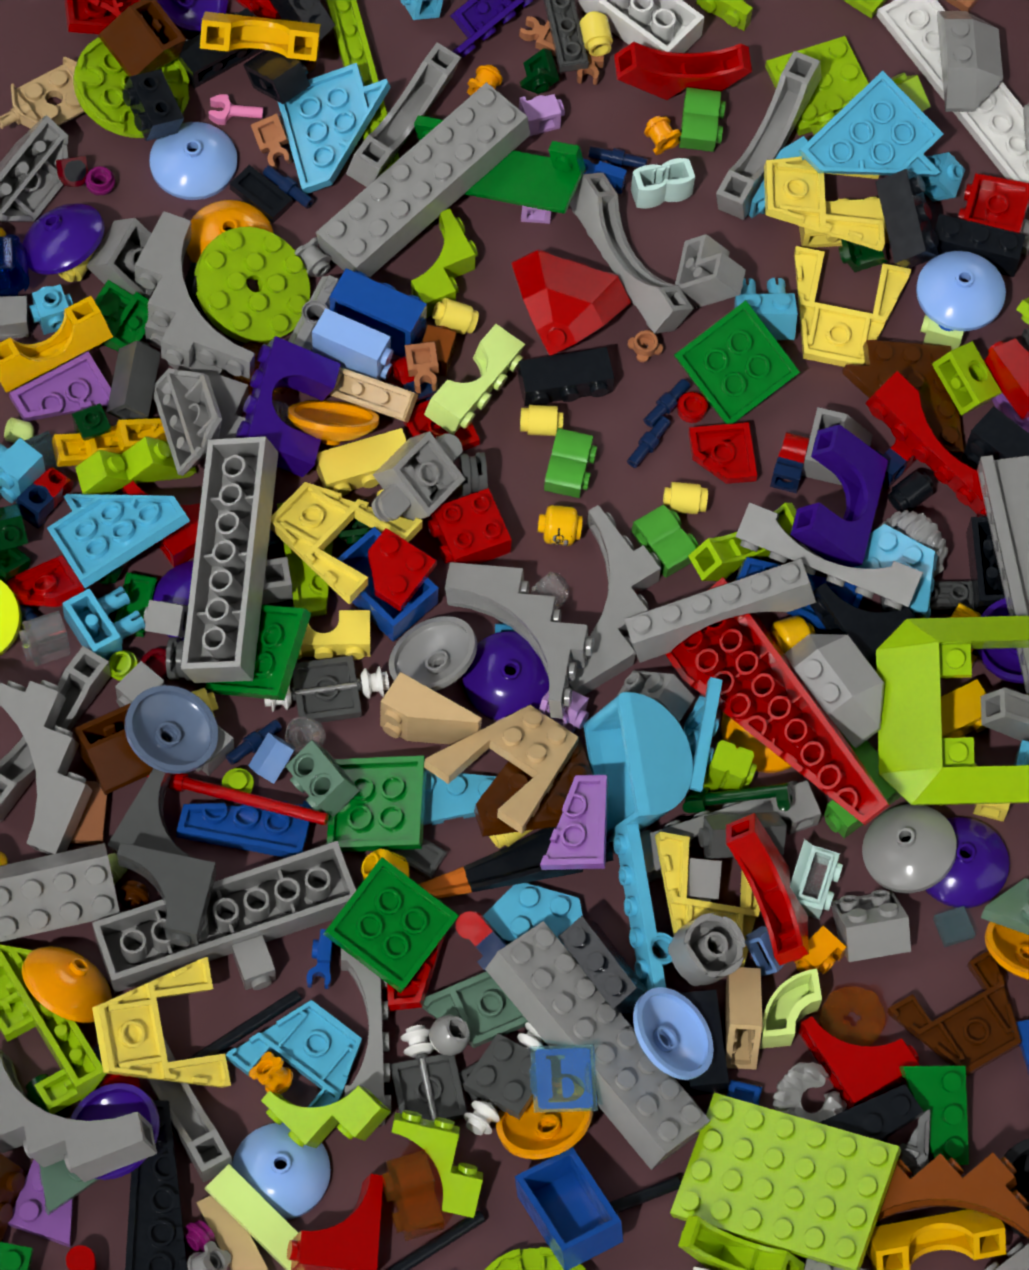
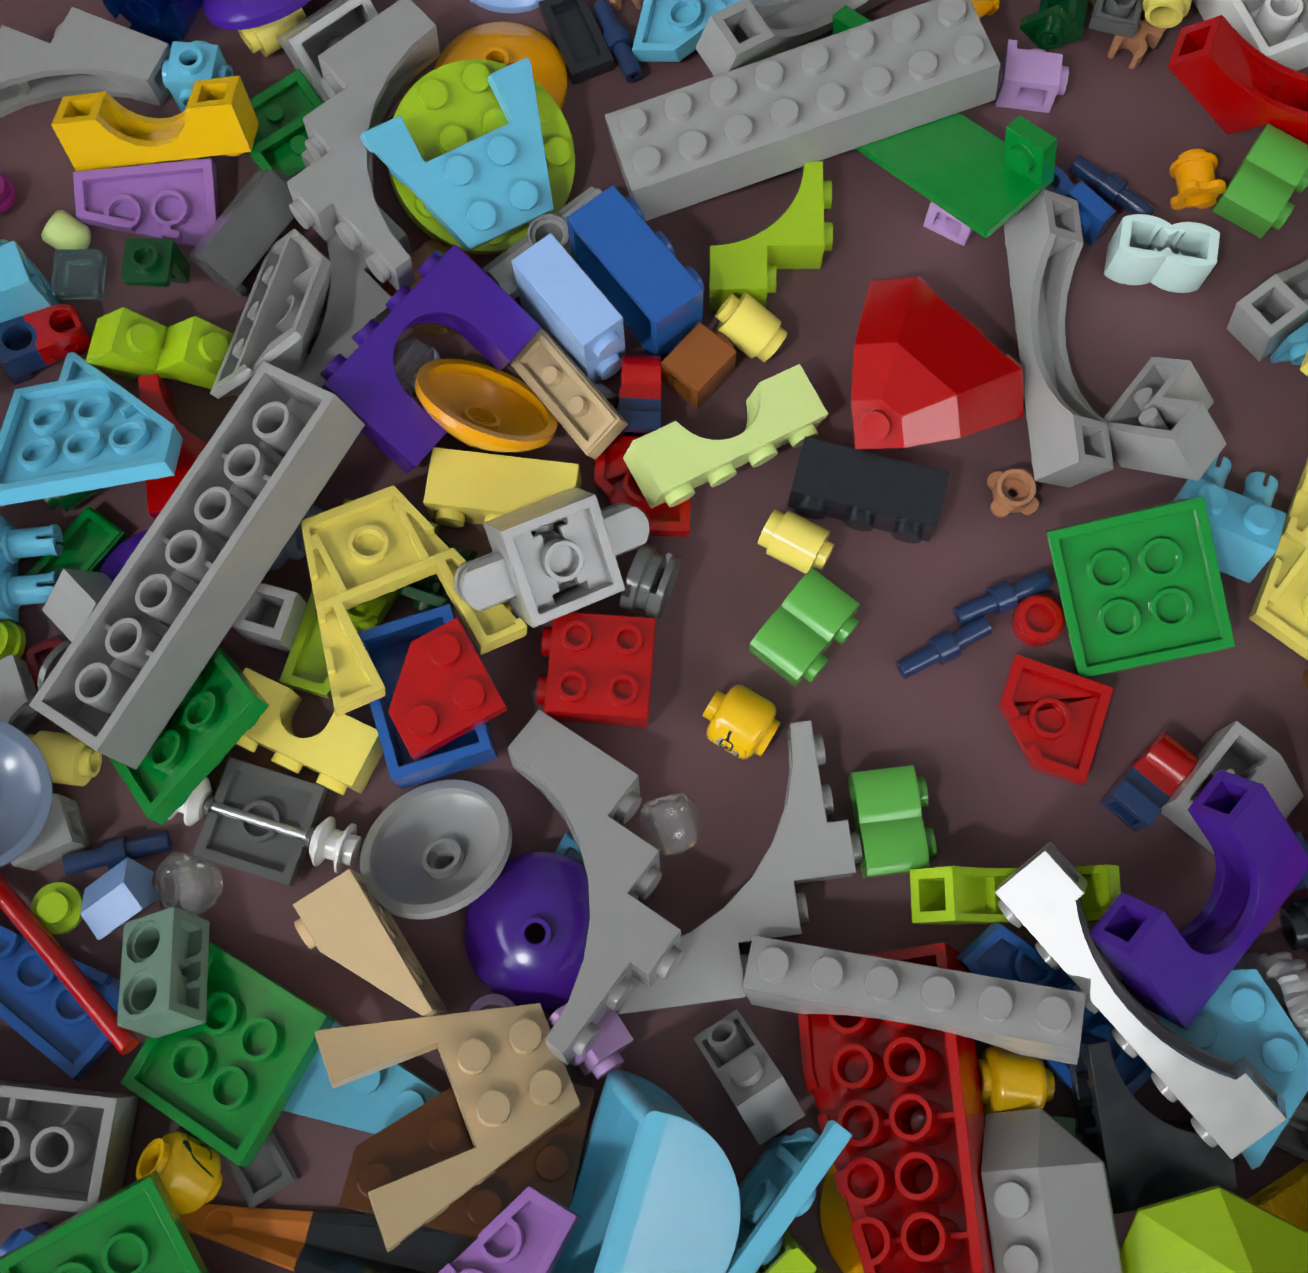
camera: 35 degrees right, 10 degrees up
(73, 450) = (164, 305): yellow slope -> none
(268, 296) = (486, 183): none -> medium azure wing
(313, 258) = (593, 156): light grey brick -> none
(422, 364) = (655, 377): nougat plate -> none
(685, 498) = (956, 766): light yellow brick -> none

